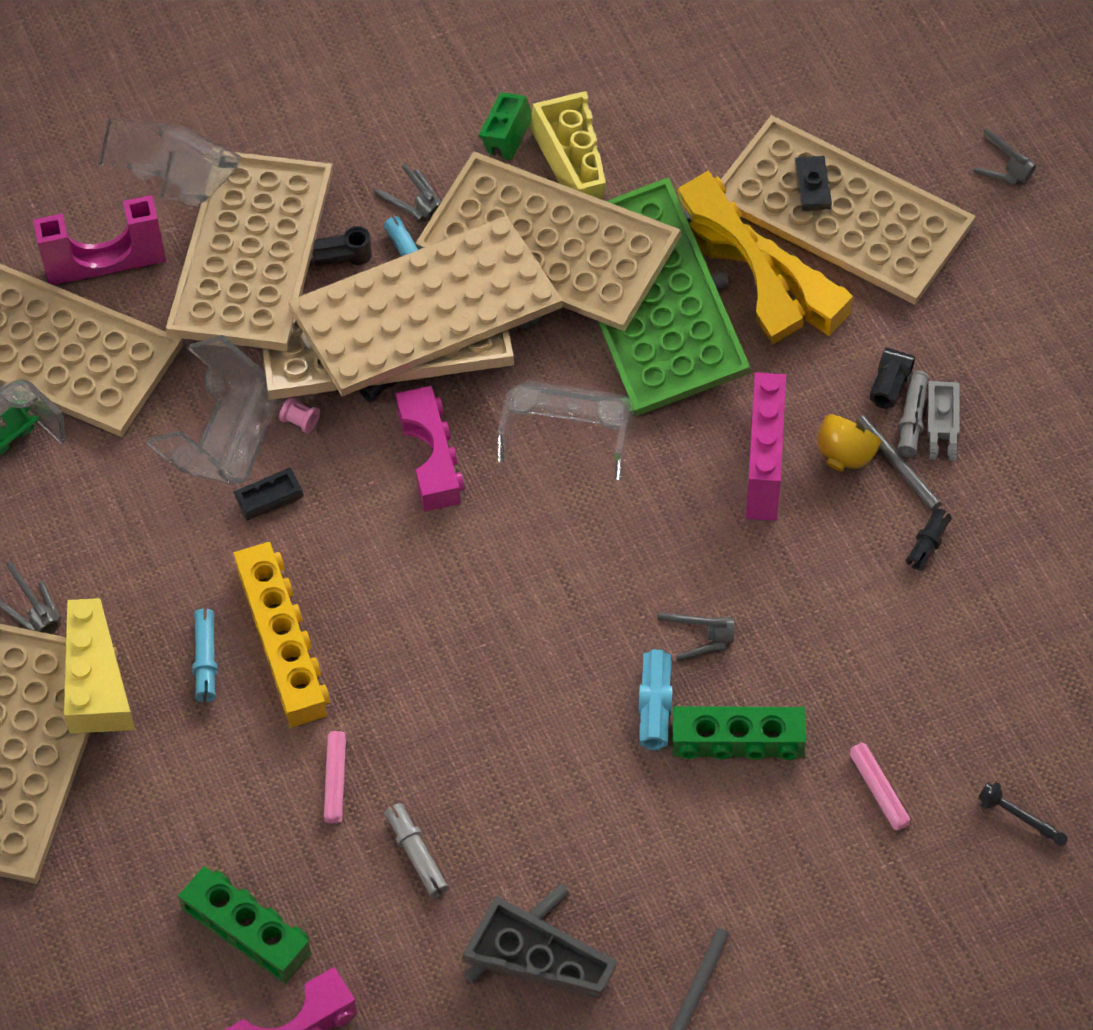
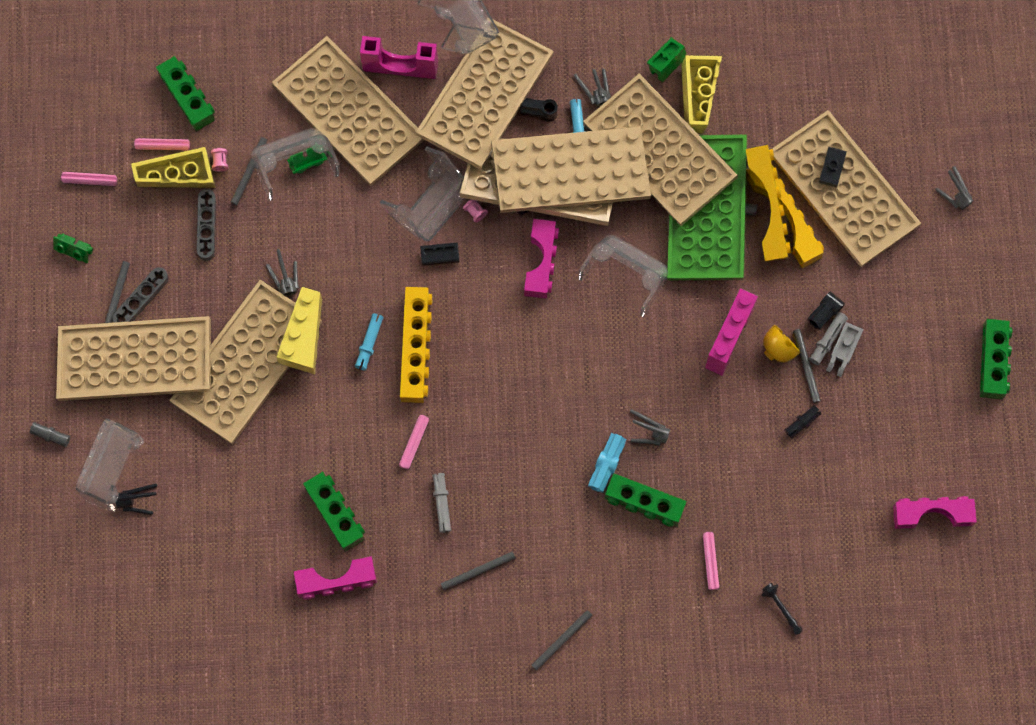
camera: 20 degrees right, 15 degrees up
(533, 950) = (480, 587): dark grey wedge -> none

